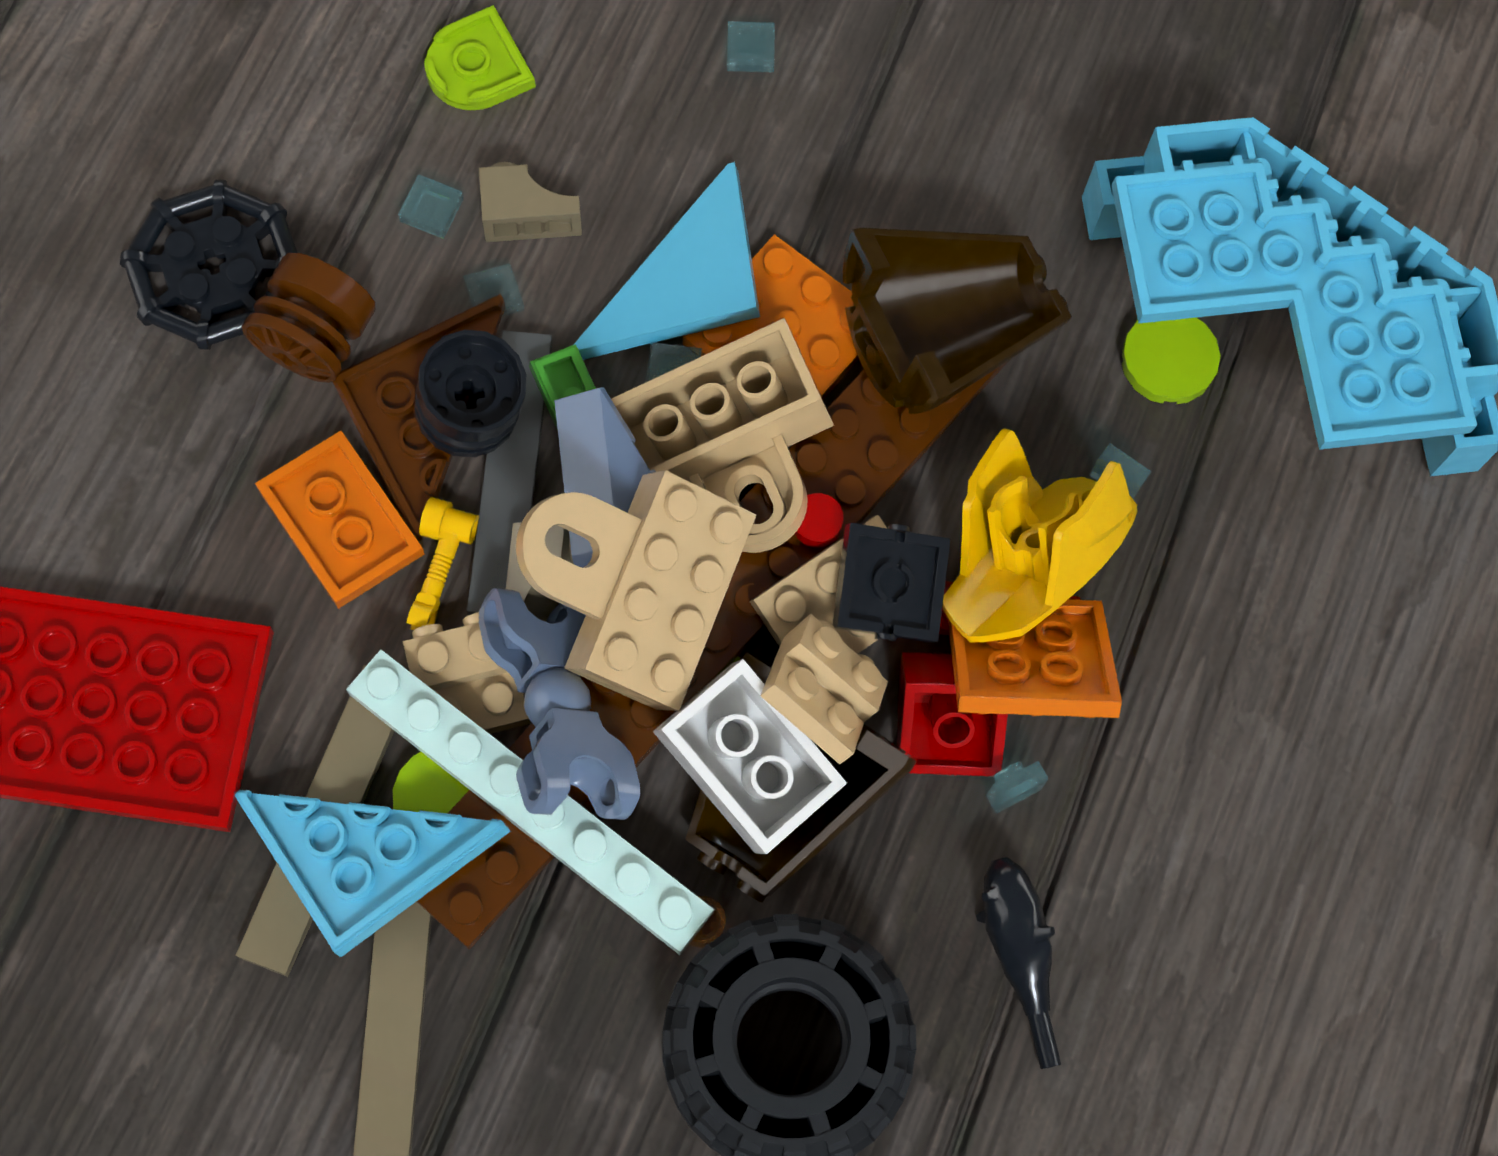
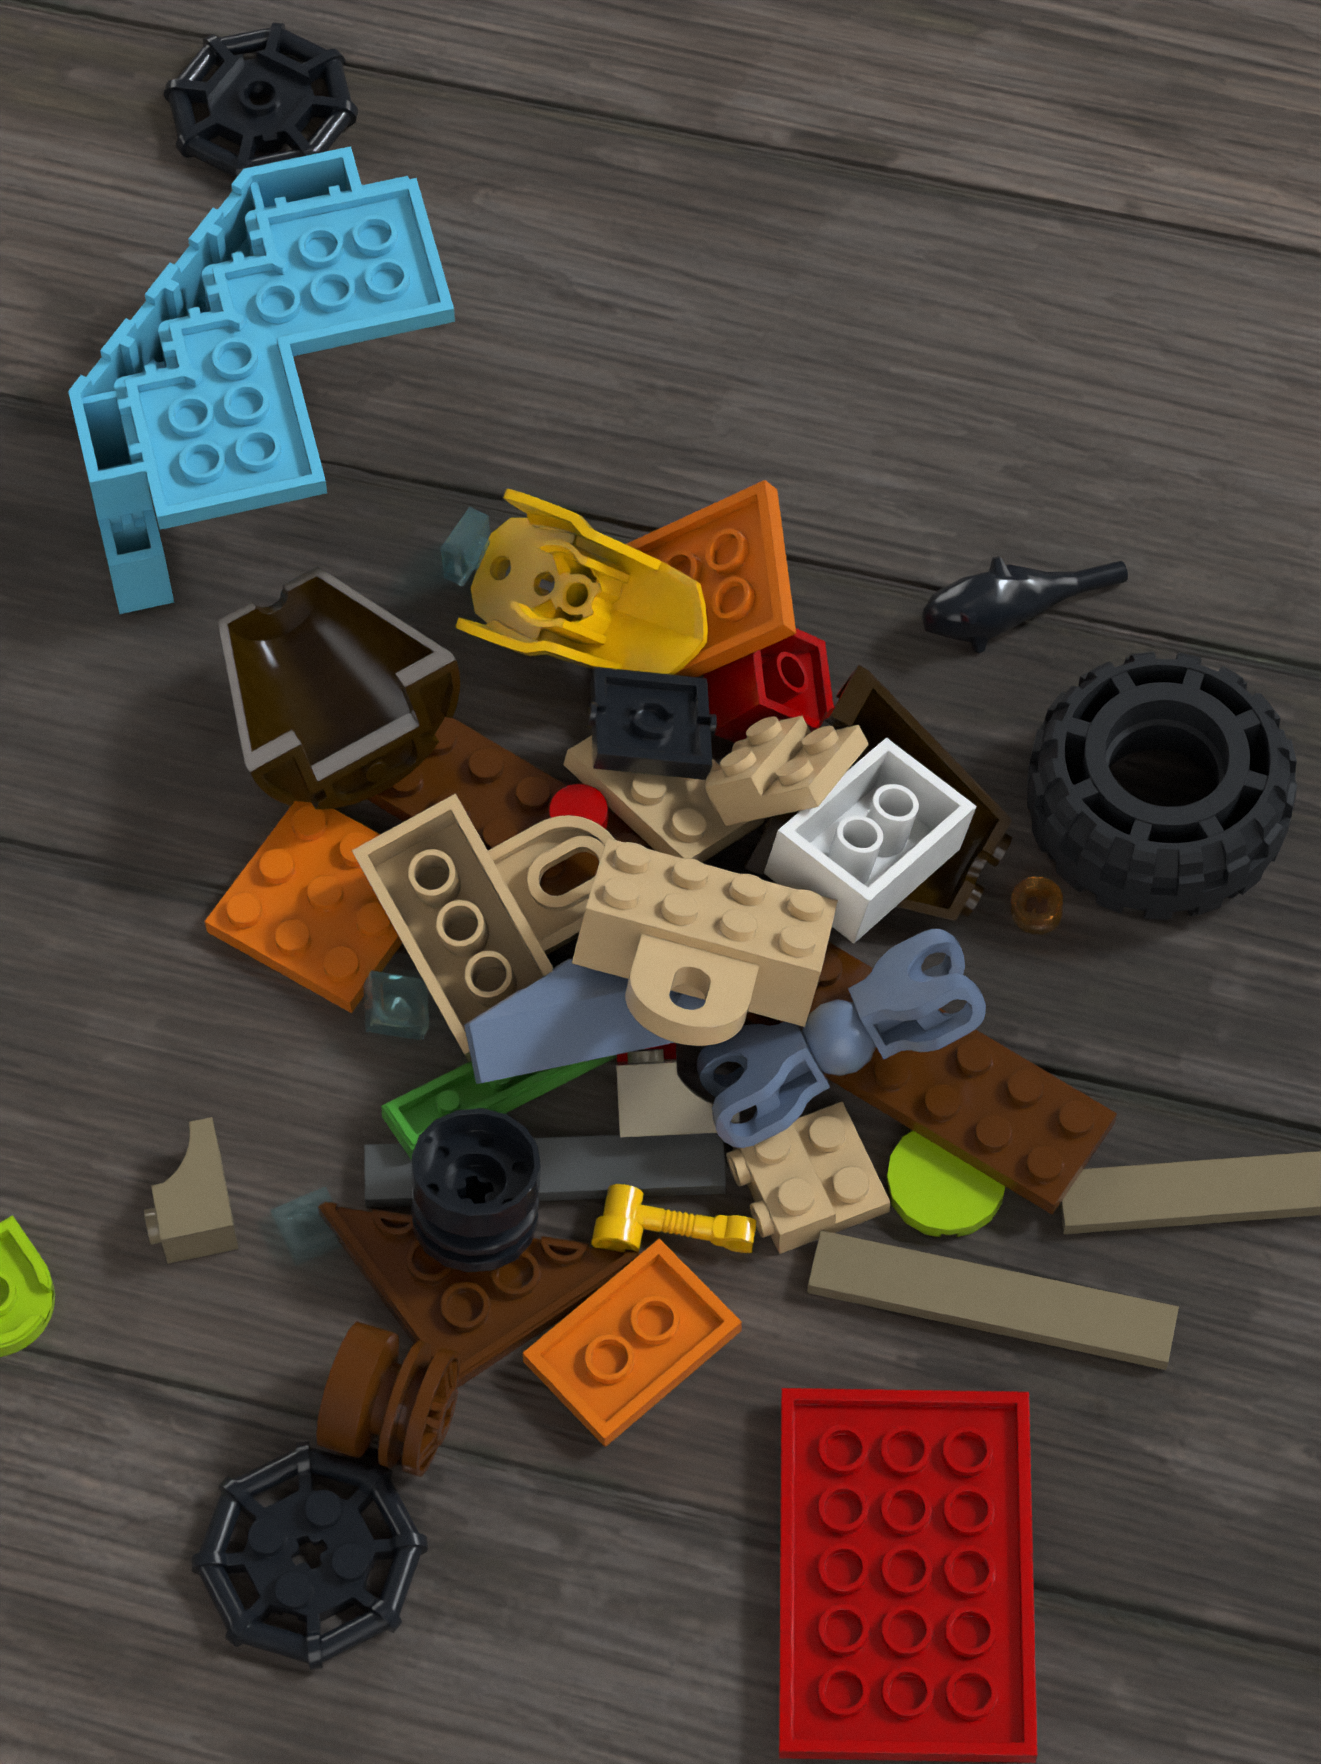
camera: 90 degrees left, 10 degrees down
(363, 861) = (1045, 1235): medium azure tile -> none
(431, 206) = (201, 1312): clear light blue tile -> none
(568, 834) = (943, 1078): light aqua plate -> none
(689, 282) = (276, 998): medium azure tile -> none
(1016, 784) = (838, 617): clear light blue plate -> none
(1170, 359) = (319, 525): lime tile -> none

